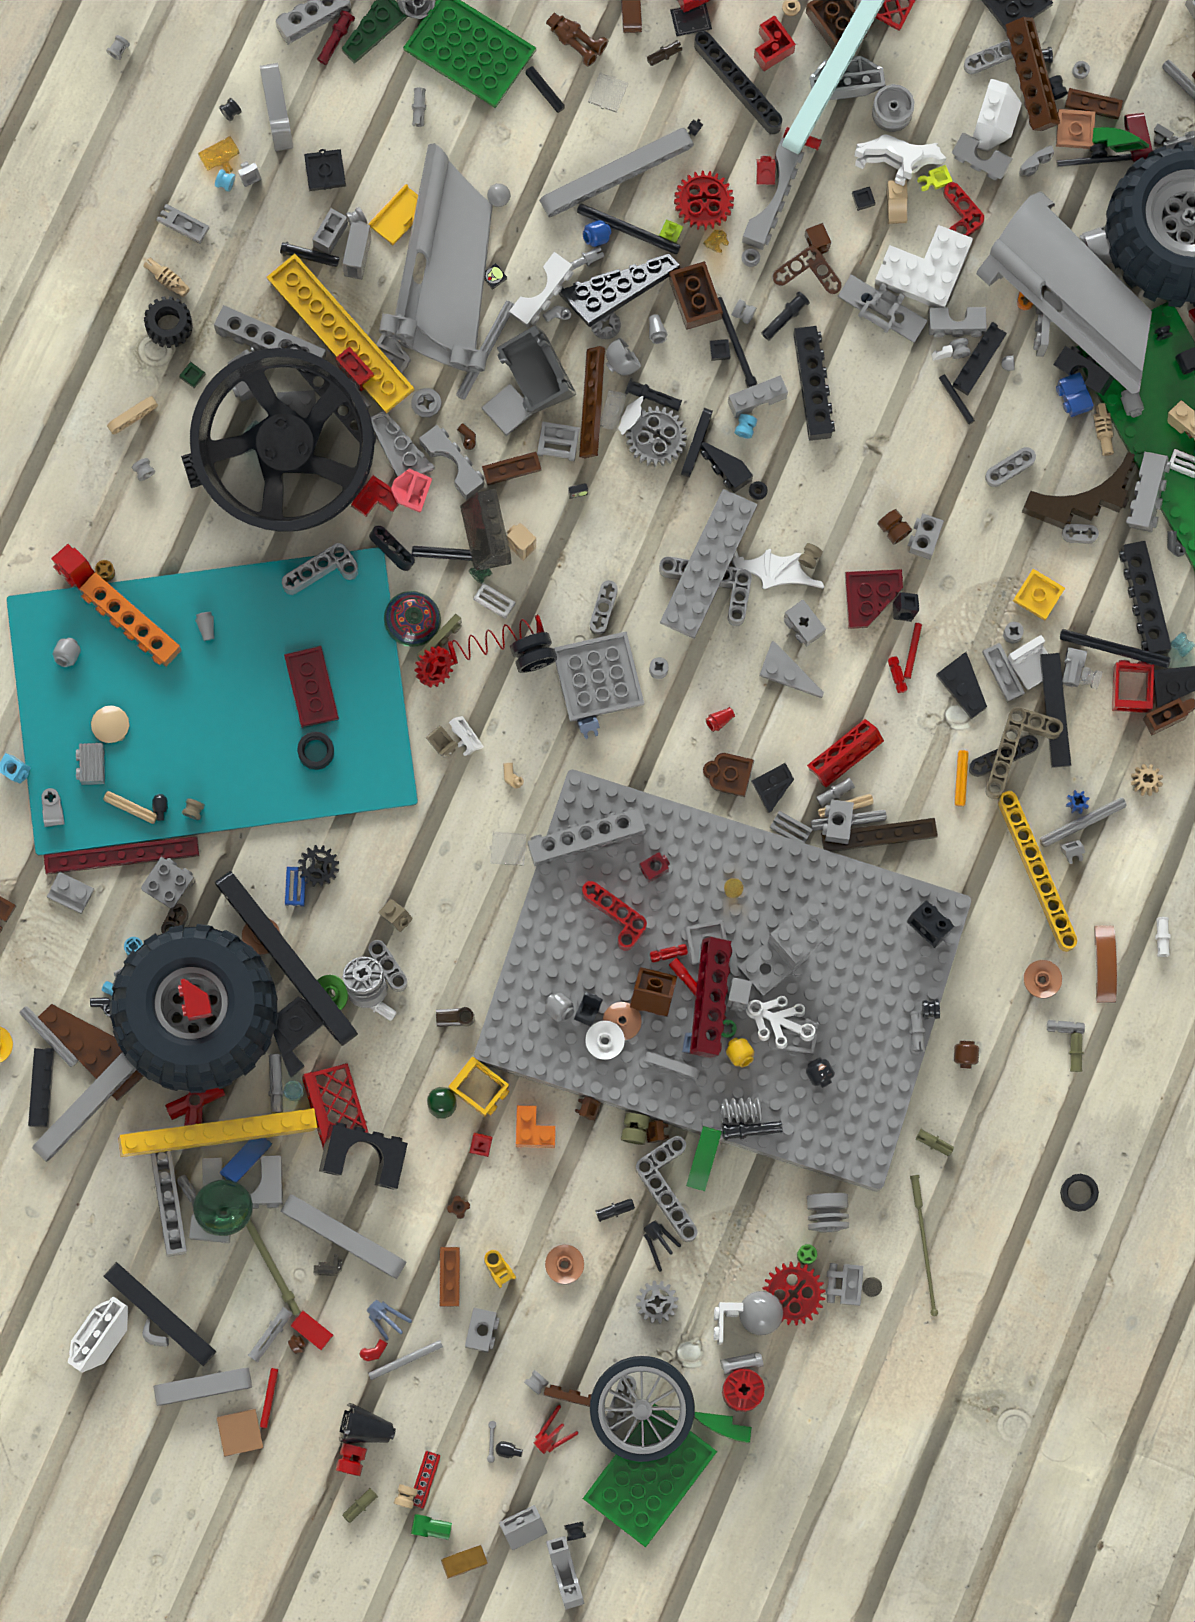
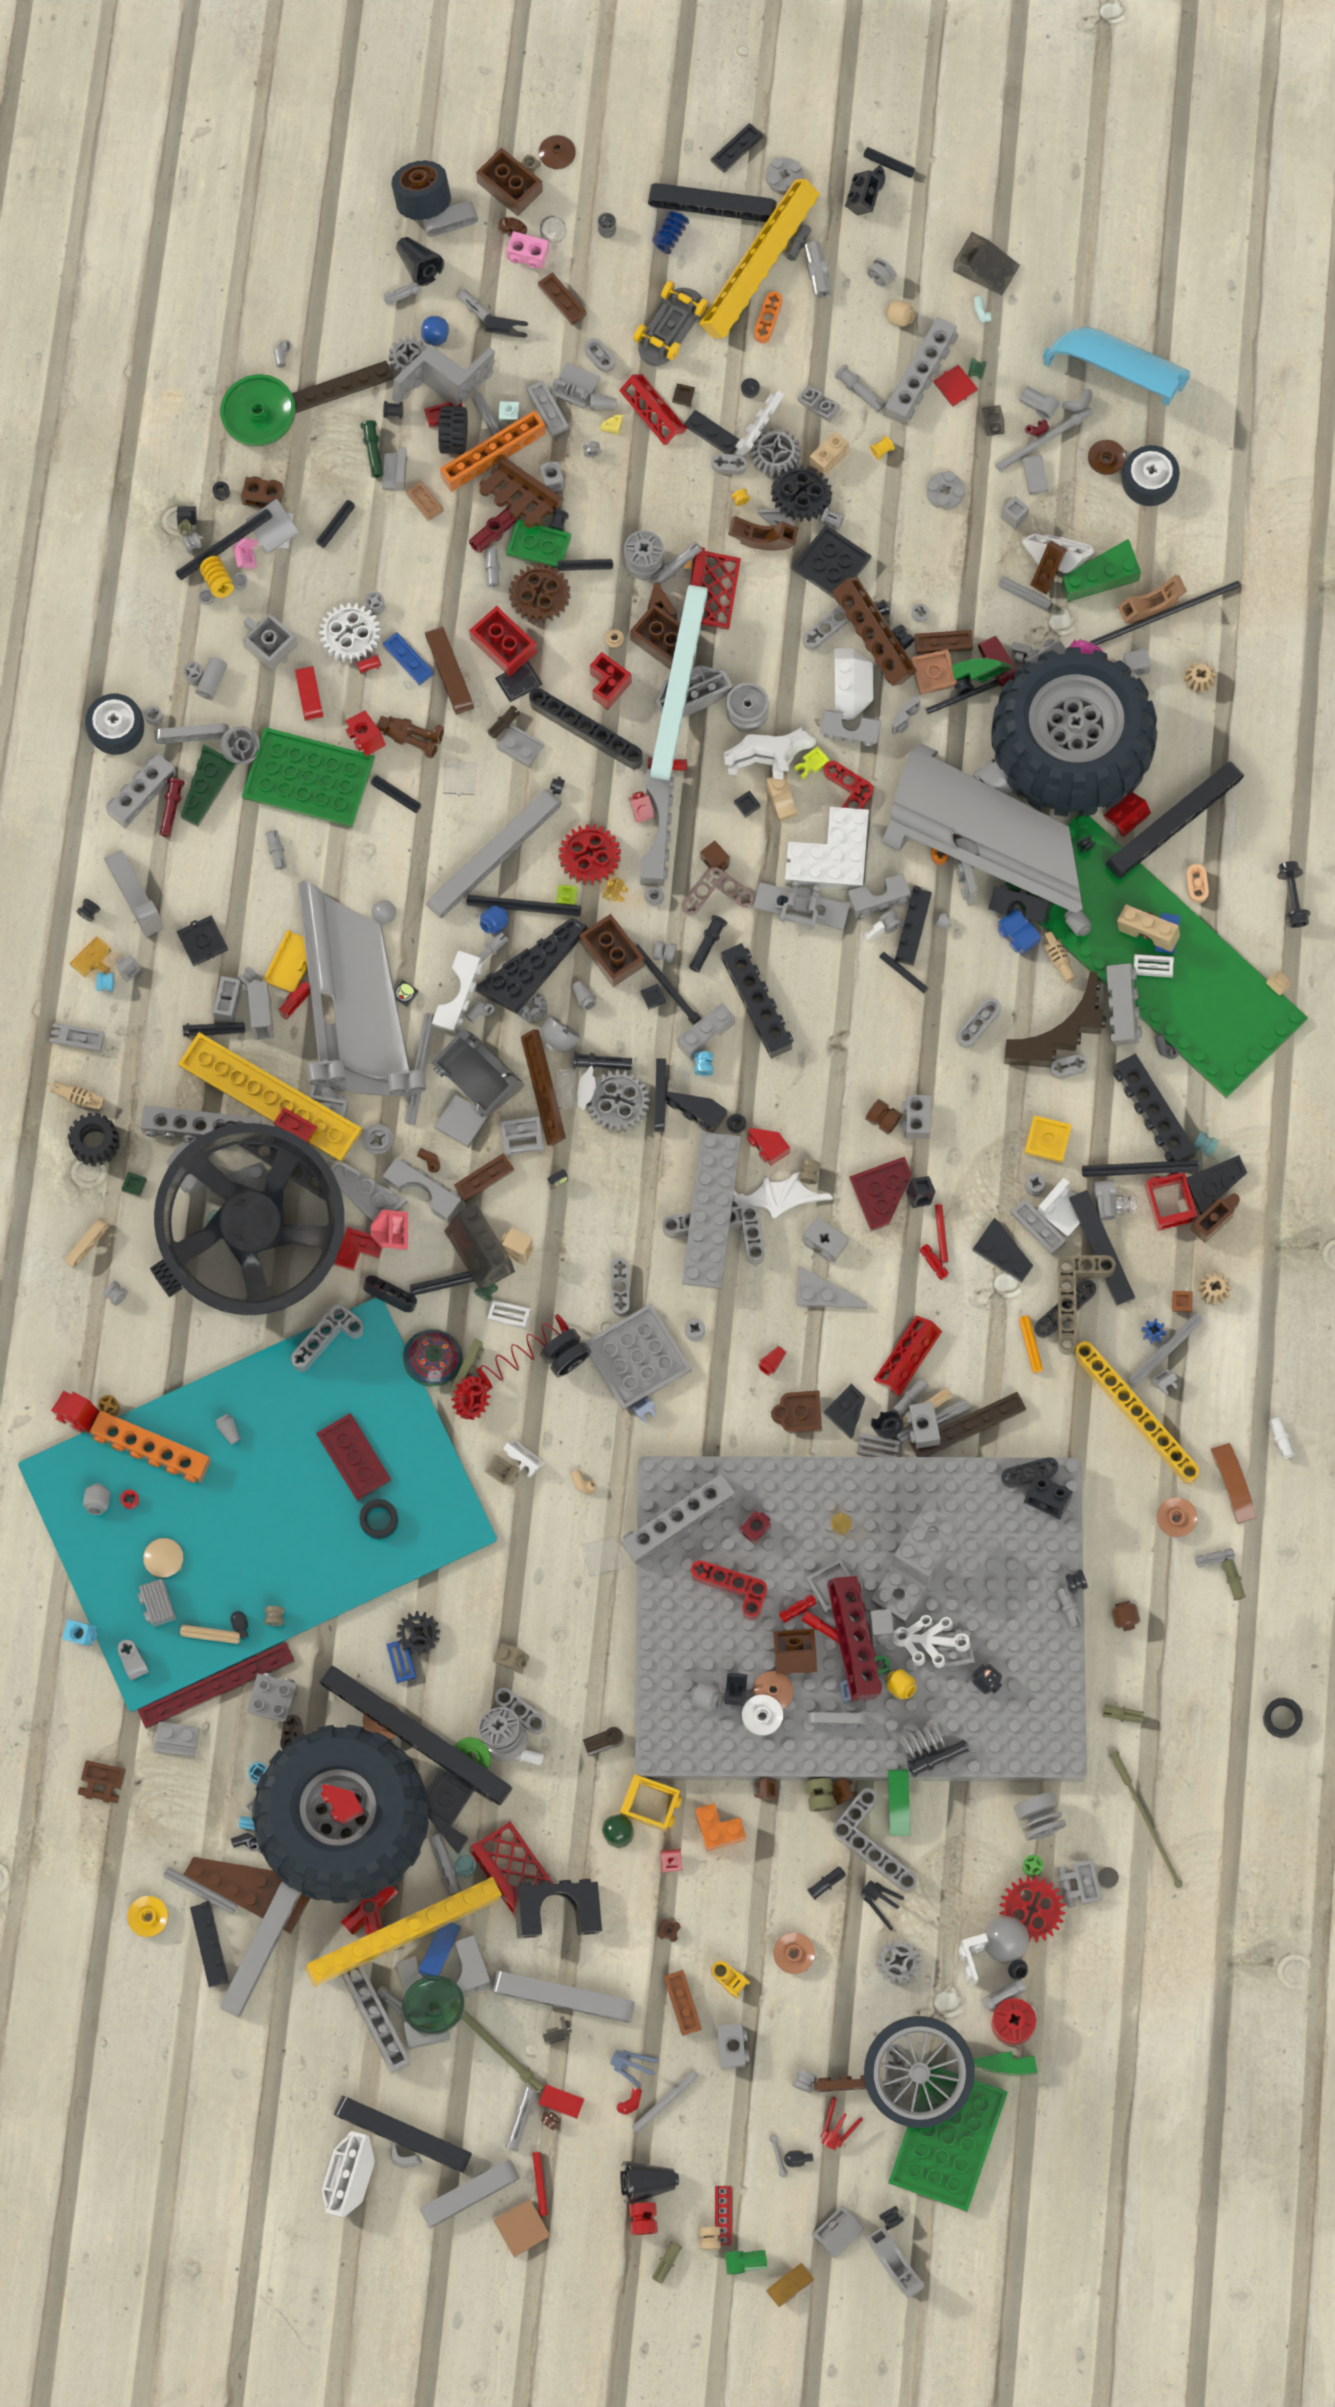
camera: 10 degrees left, 5 degrees down
(100, 657) = (131, 1493): none -> red bush
(391, 251) = (294, 1000): none -> red plate
(534, 24) = (365, 733): none -> red brick
(673, 80) = (520, 746): none -> light grey plate
(763, 1344) = (1018, 1969): none -> black plate
(782, 519) = (769, 1143): none -> red slope
(806, 810) = (888, 1424): none -> black hair
(906, 890) = (1013, 1471): none -> black beam
(1112, 782) = (1182, 1301): none -> dark orange plate

